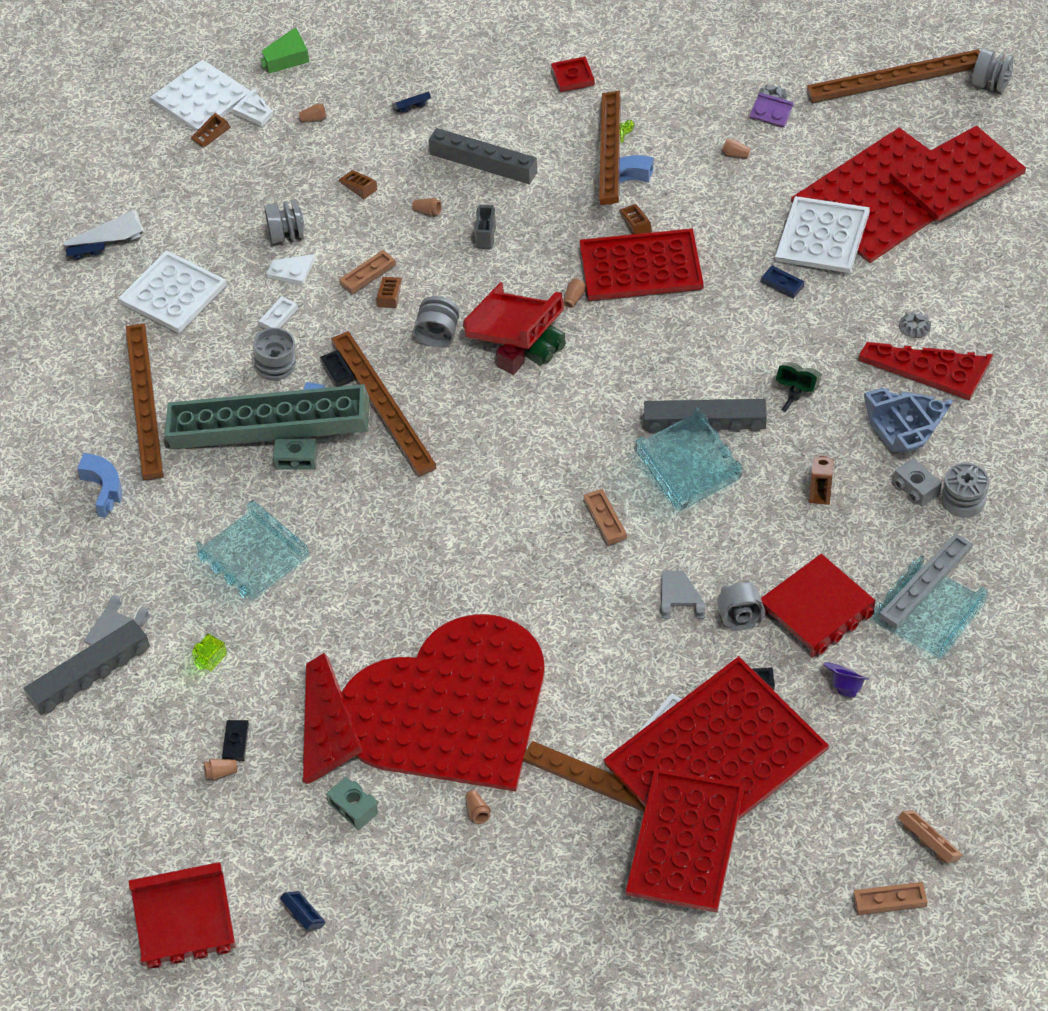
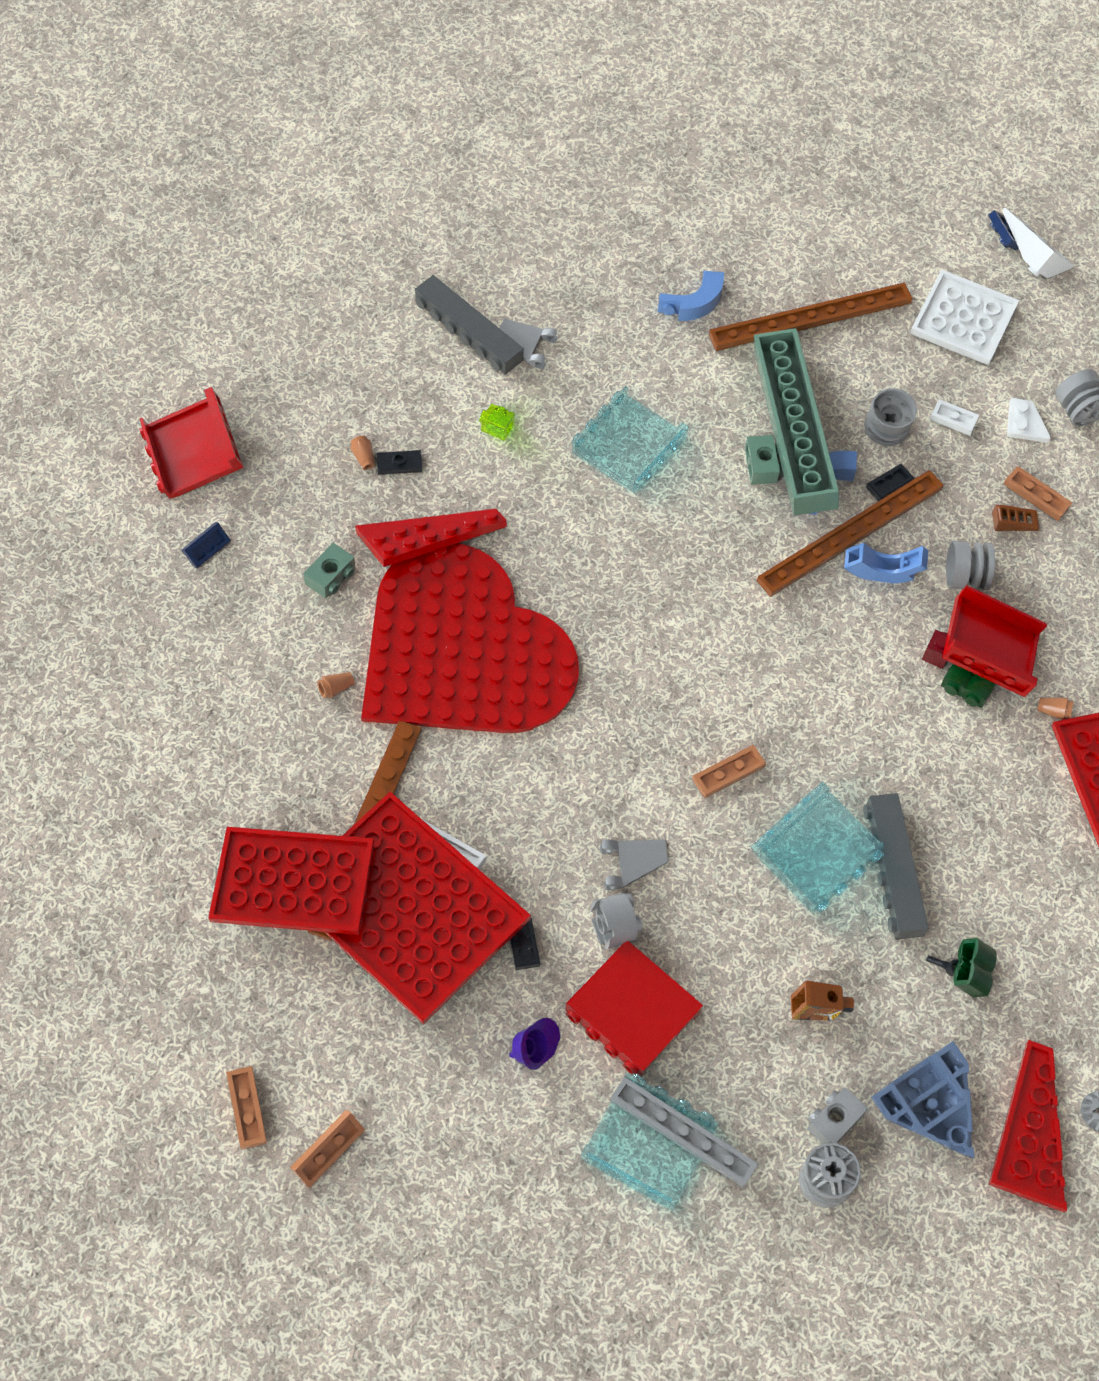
camera: 75 degrees right, 10 degrees up
(426, 375) = (887, 568): none -> medium blue arch

